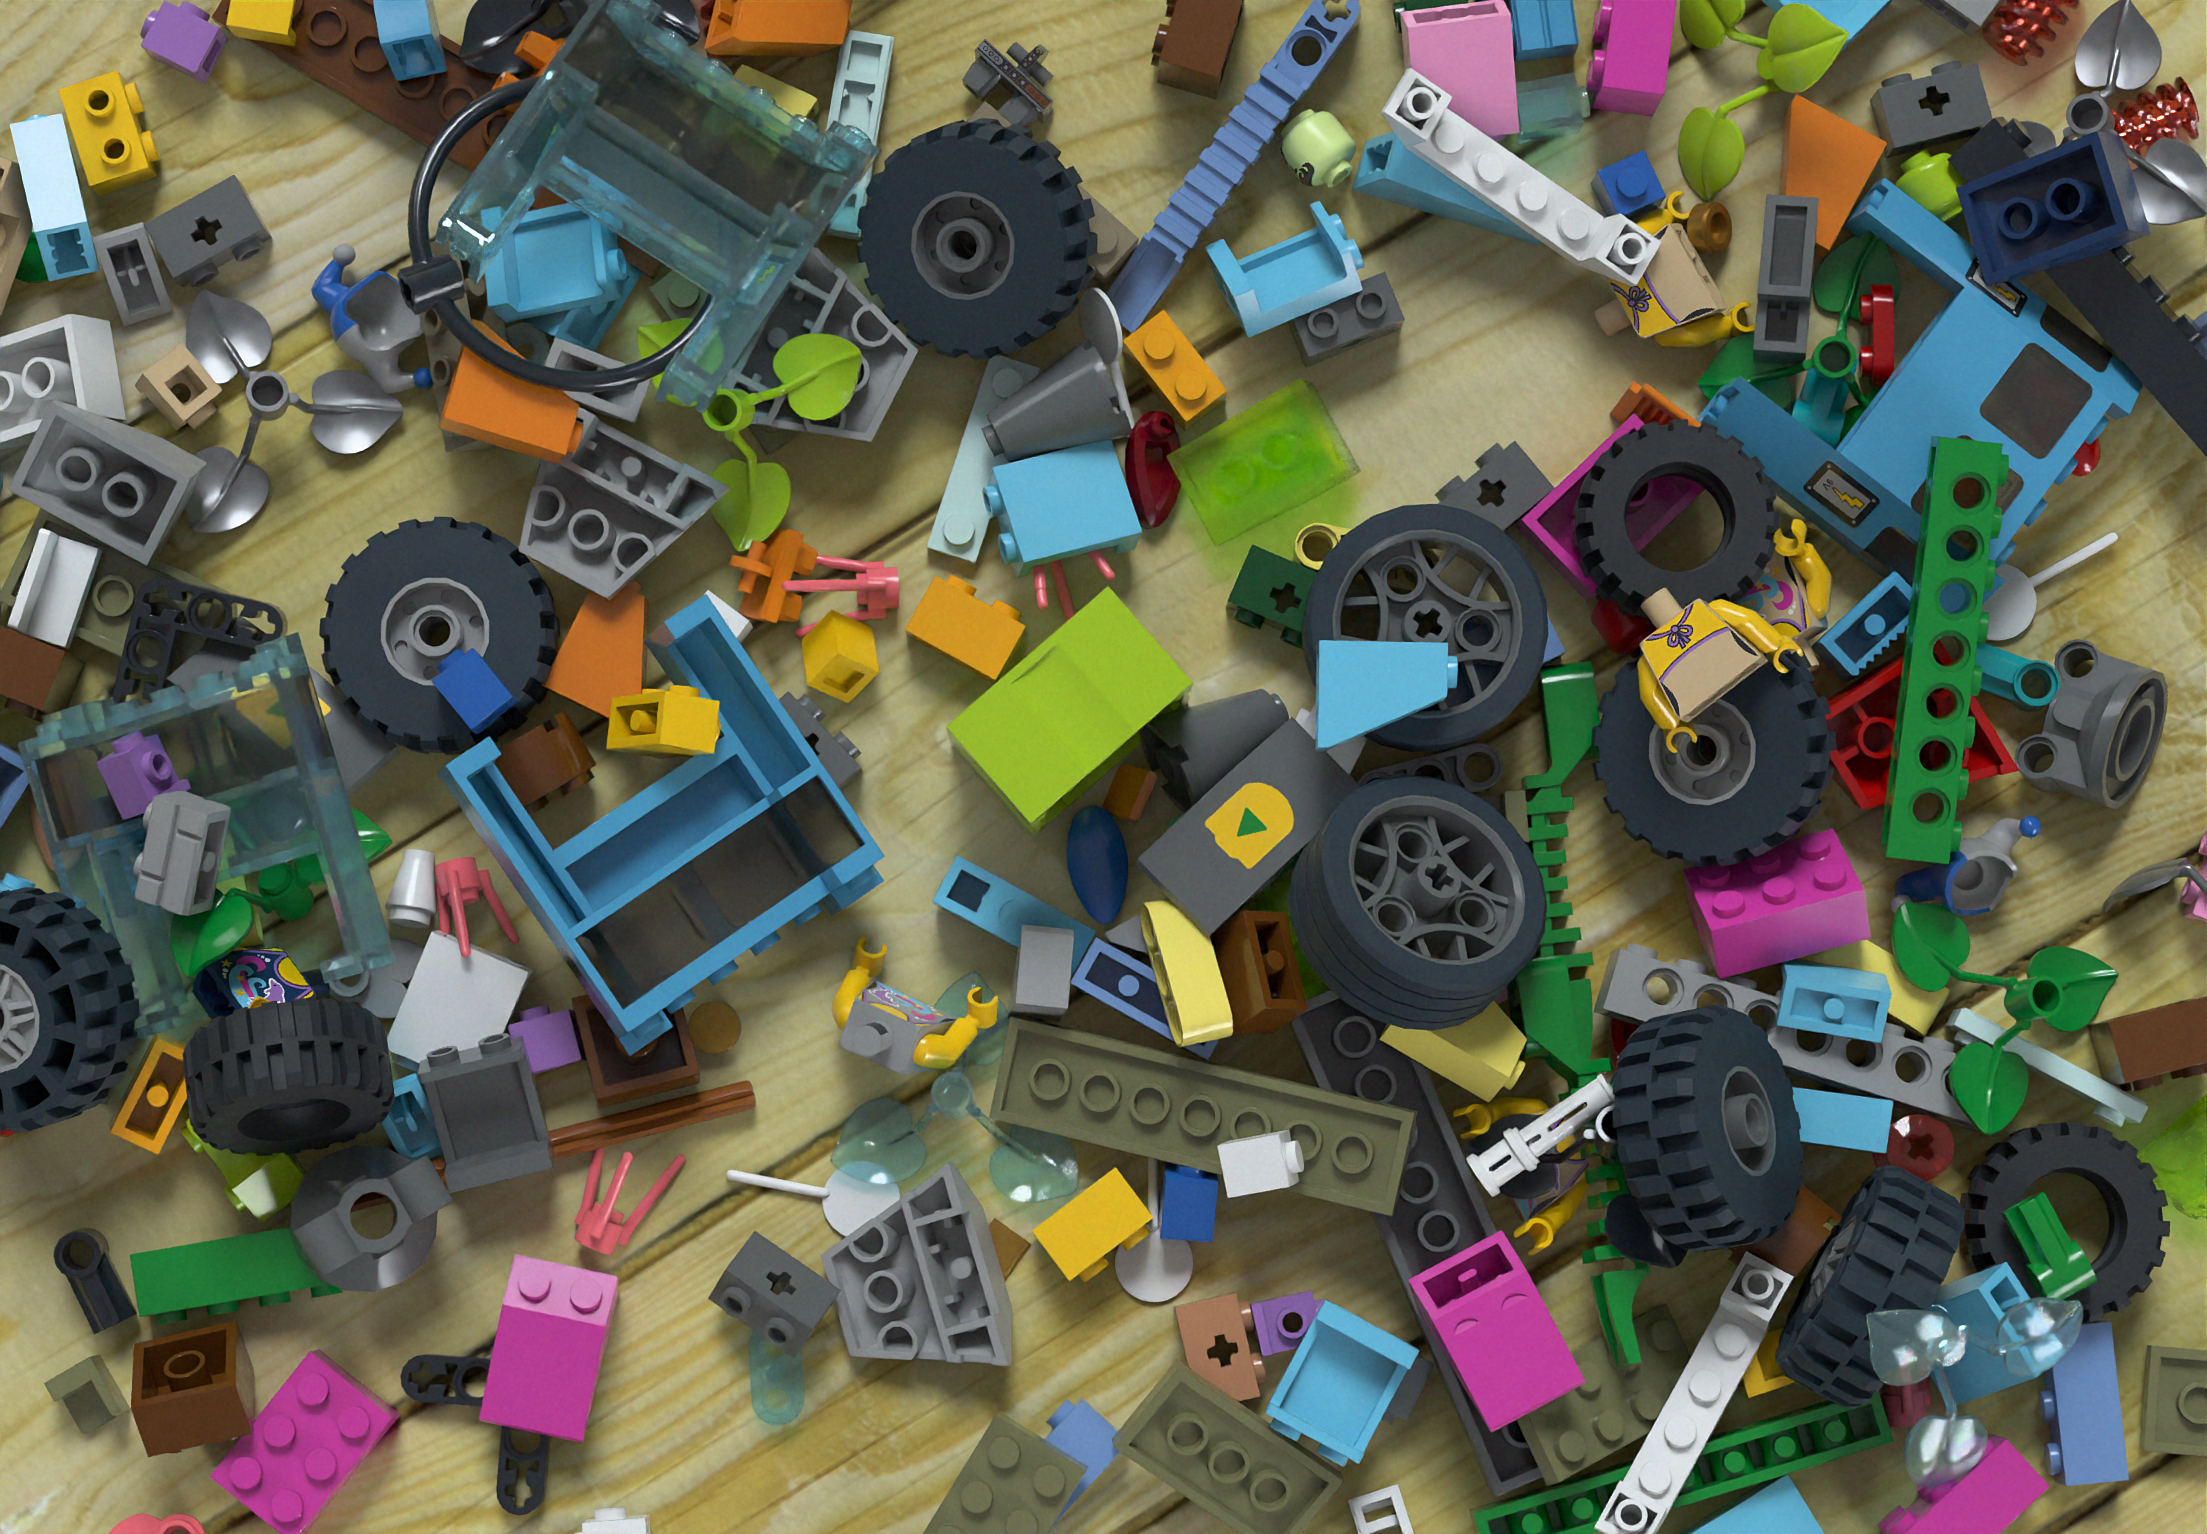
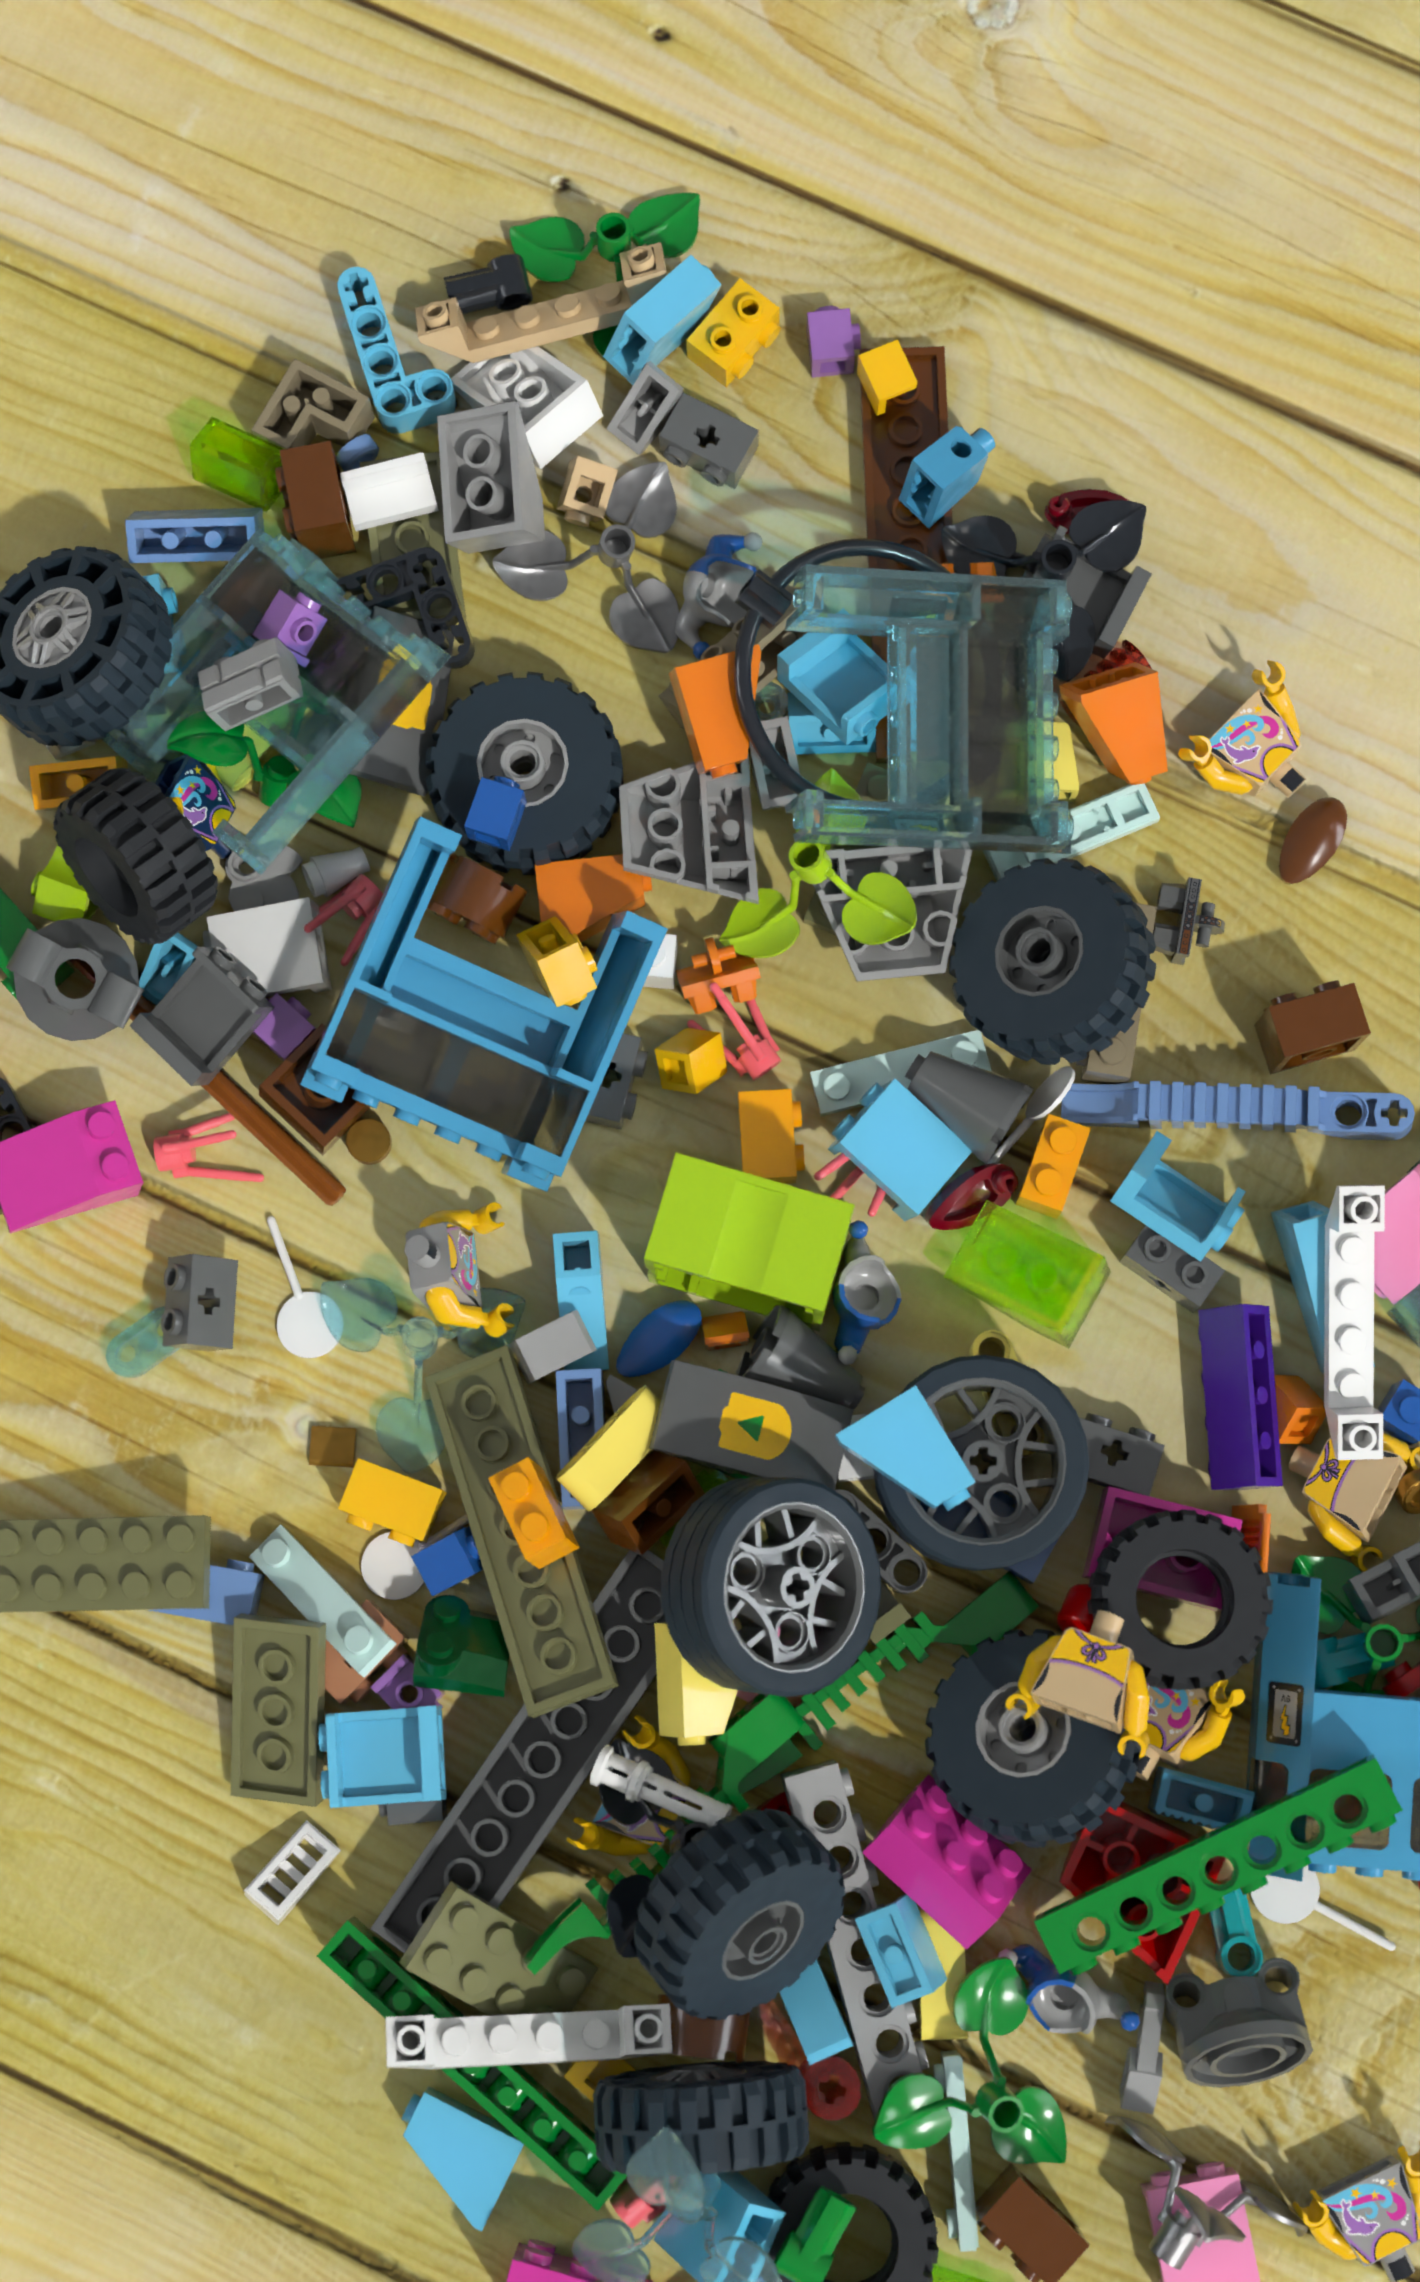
camera: 65 degrees right, 5 degrees down
(924, 1279) = (277, 1405): light grey wedge -> none
(1147, 1351) = (322, 1600): none -> light aqua plate
(1192, 636) = (862, 1295): none -> light grey piece
(1199, 1089) = (533, 1513): none -> light orange brick
(1260, 1163) = (506, 1592): white brick -> none
(1267, 574) = (931, 1324): dark green brick -> none
(1282, 1244) = (460, 1649): none -> dark green slope
(1317, 148) = (1283, 1167): yellowish green head -> none
(1495, 1331) = (488, 1848): dark pink slope -> none
(1514, 338) = (1240, 1397): none -> dark purple brick
(1553, 299) = (1298, 1410): none -> orange panel
(2076, 839) = (1144, 2063): none -> light grey piece

